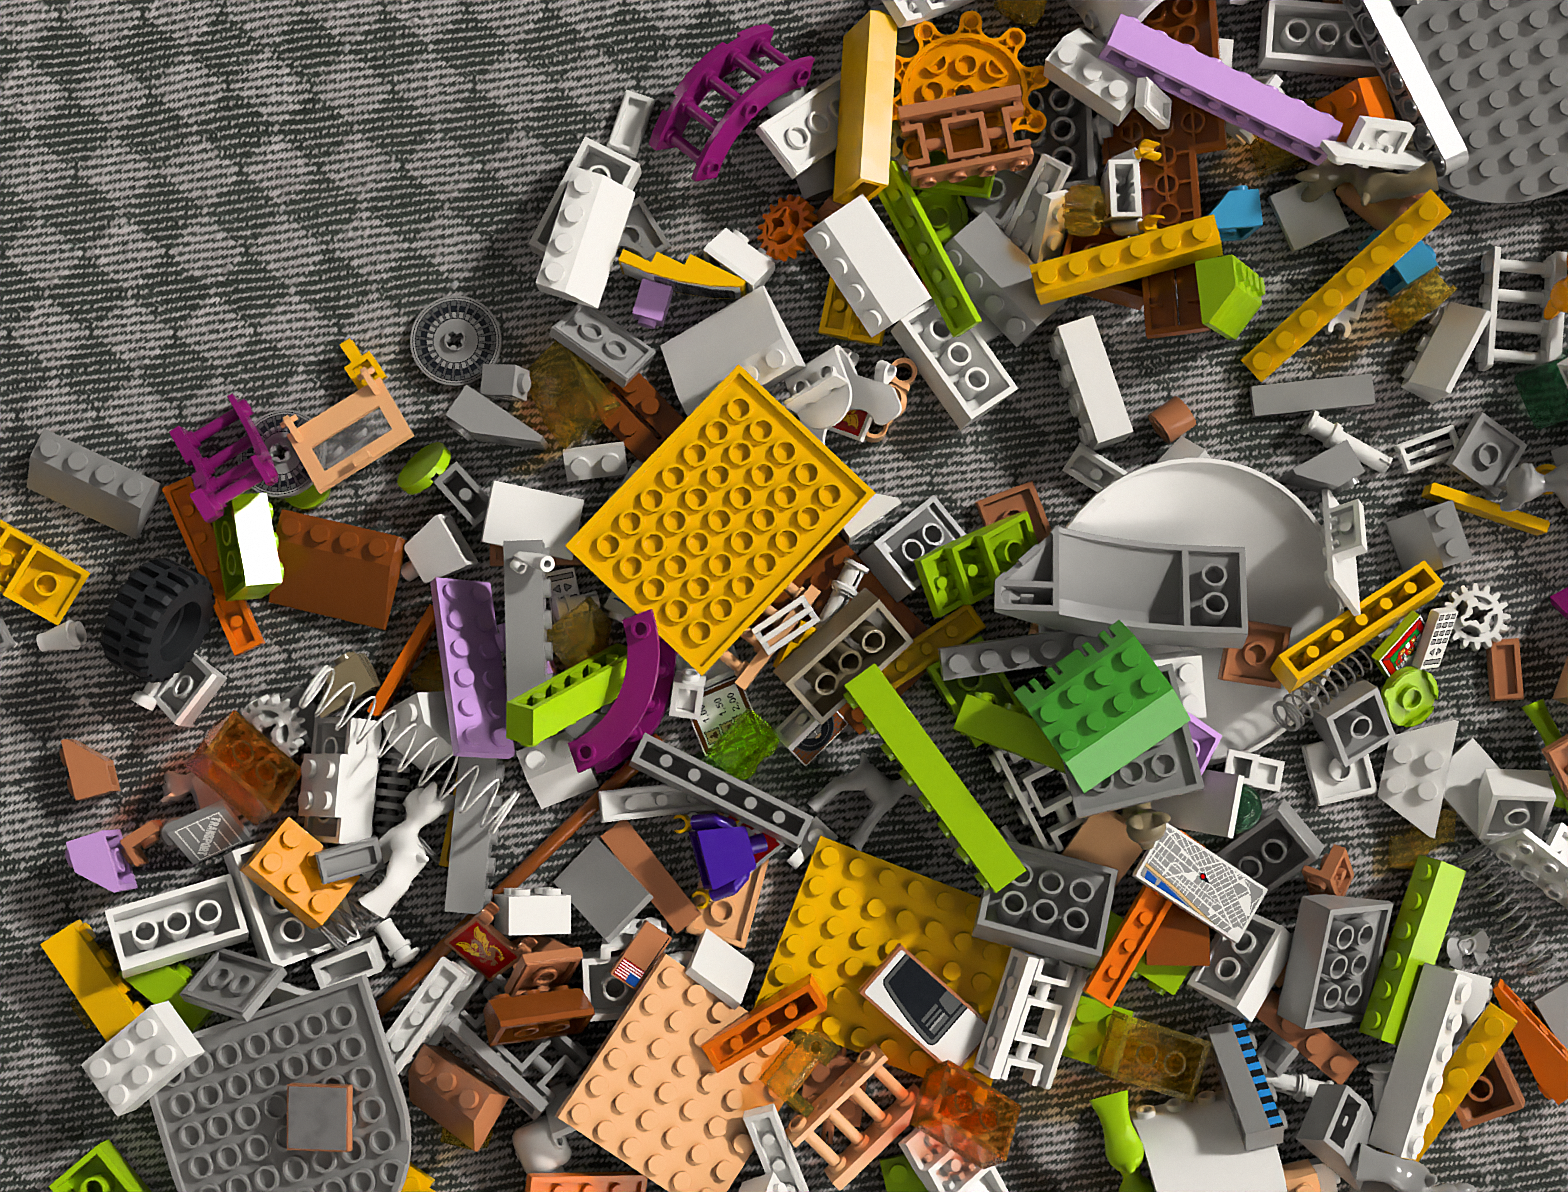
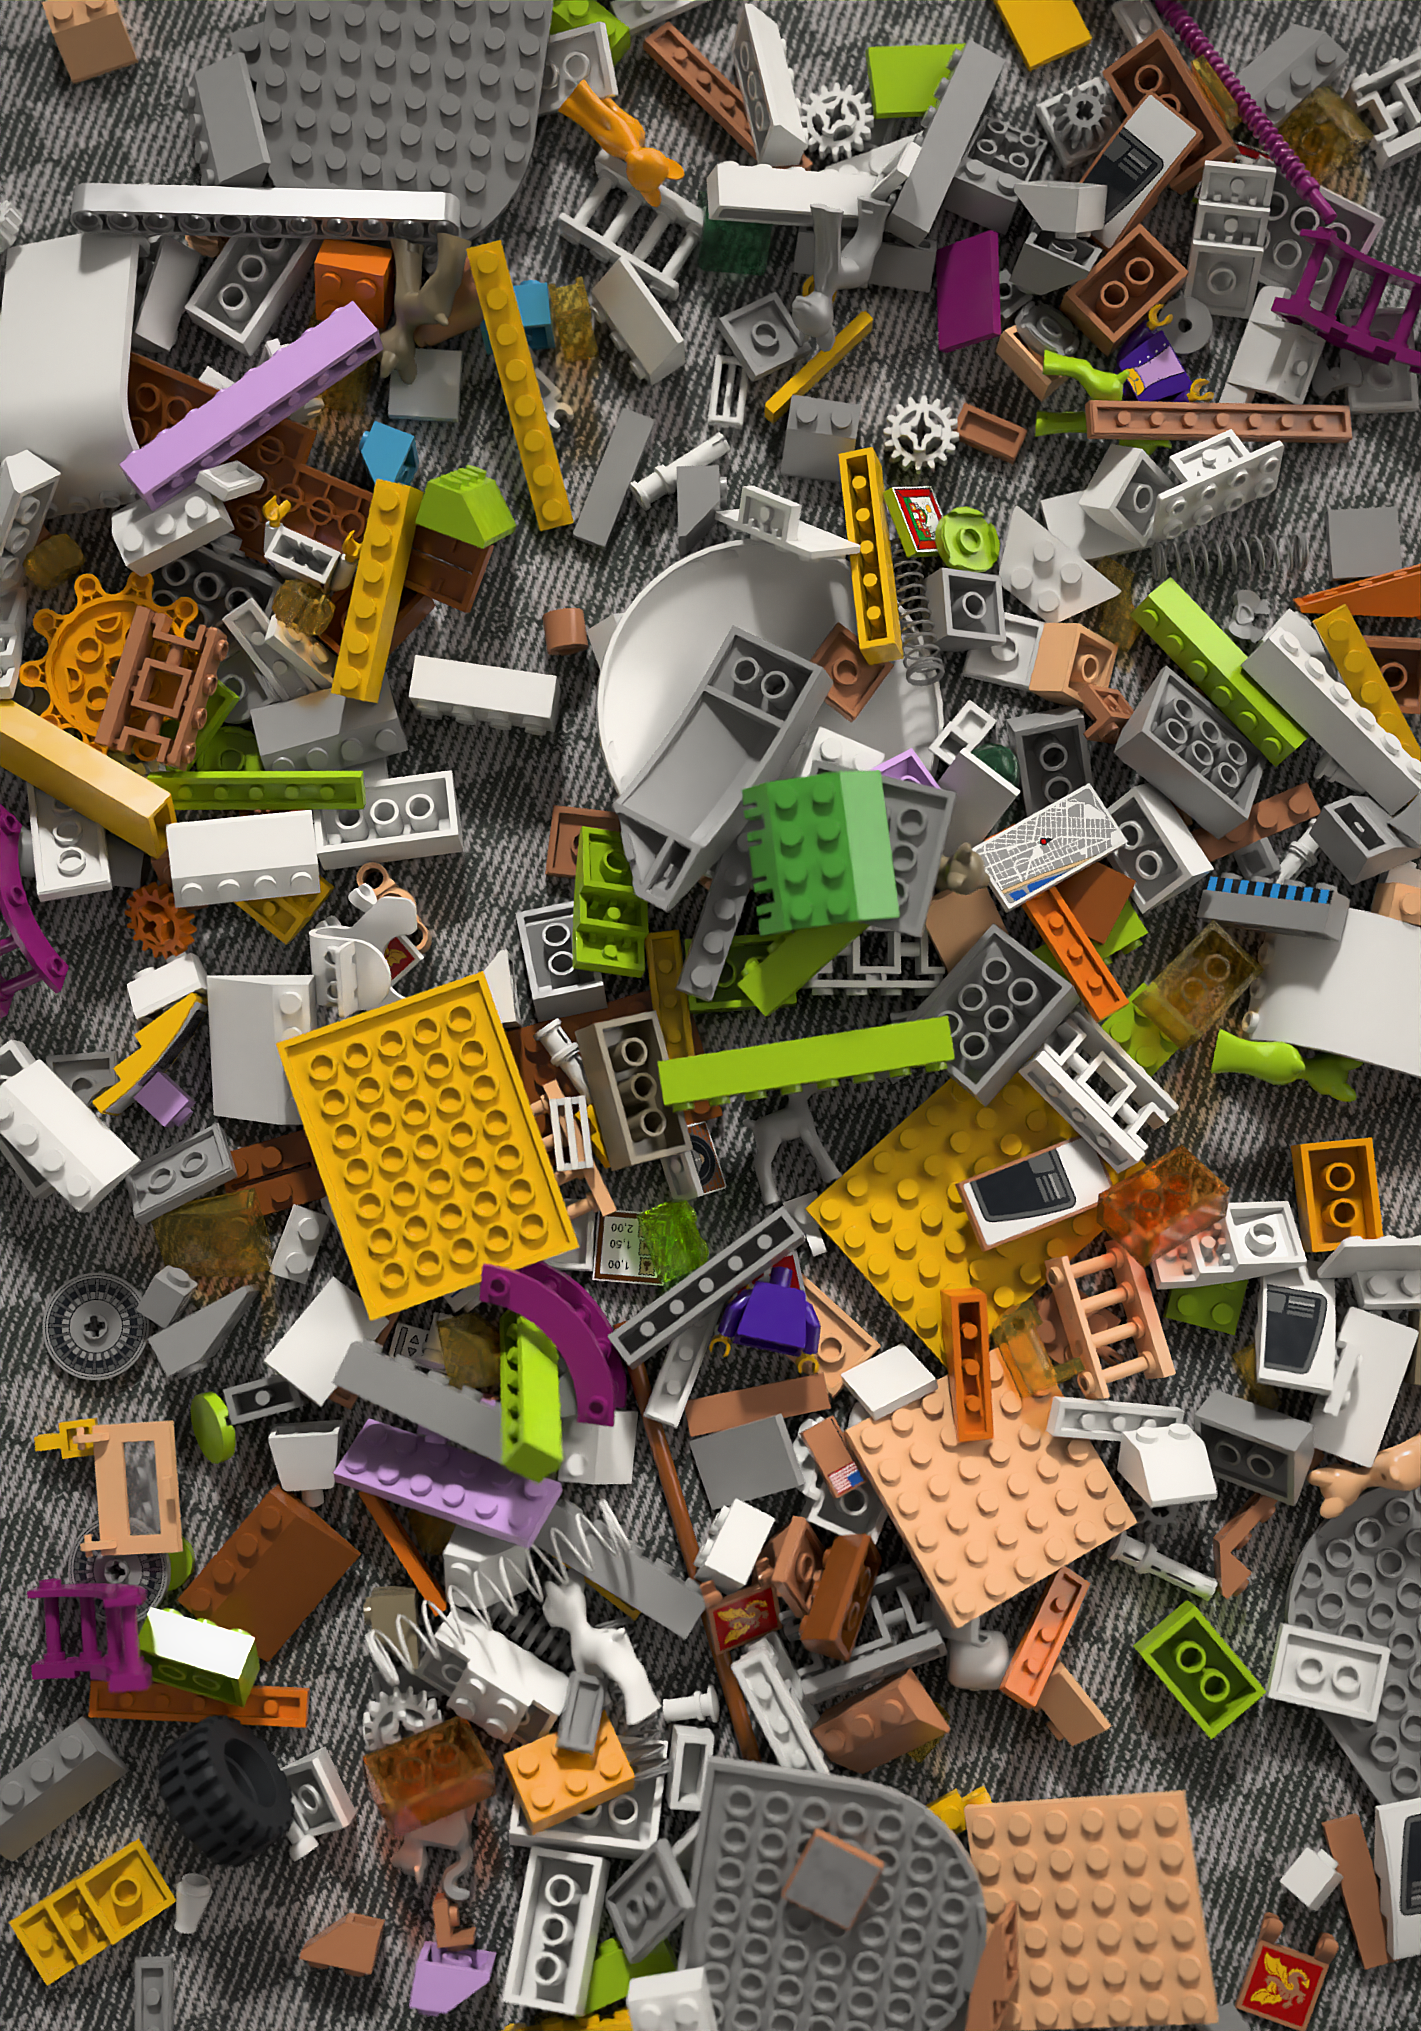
camera: 60 degrees left, 0 degrees up
(207, 832) = (475, 1849): light grey tile -> none
(531, 559) = (371, 1357): white arm -> none
(687, 694) = (590, 1271): white bracket -> none
(1092, 468) = (572, 738): white plate -> none
(1356, 824) = (1068, 661): none -> light nougat slope
(1377, 144) = (392, 278): white bracket -> none
(1434, 638) = (922, 485): white tile -> none

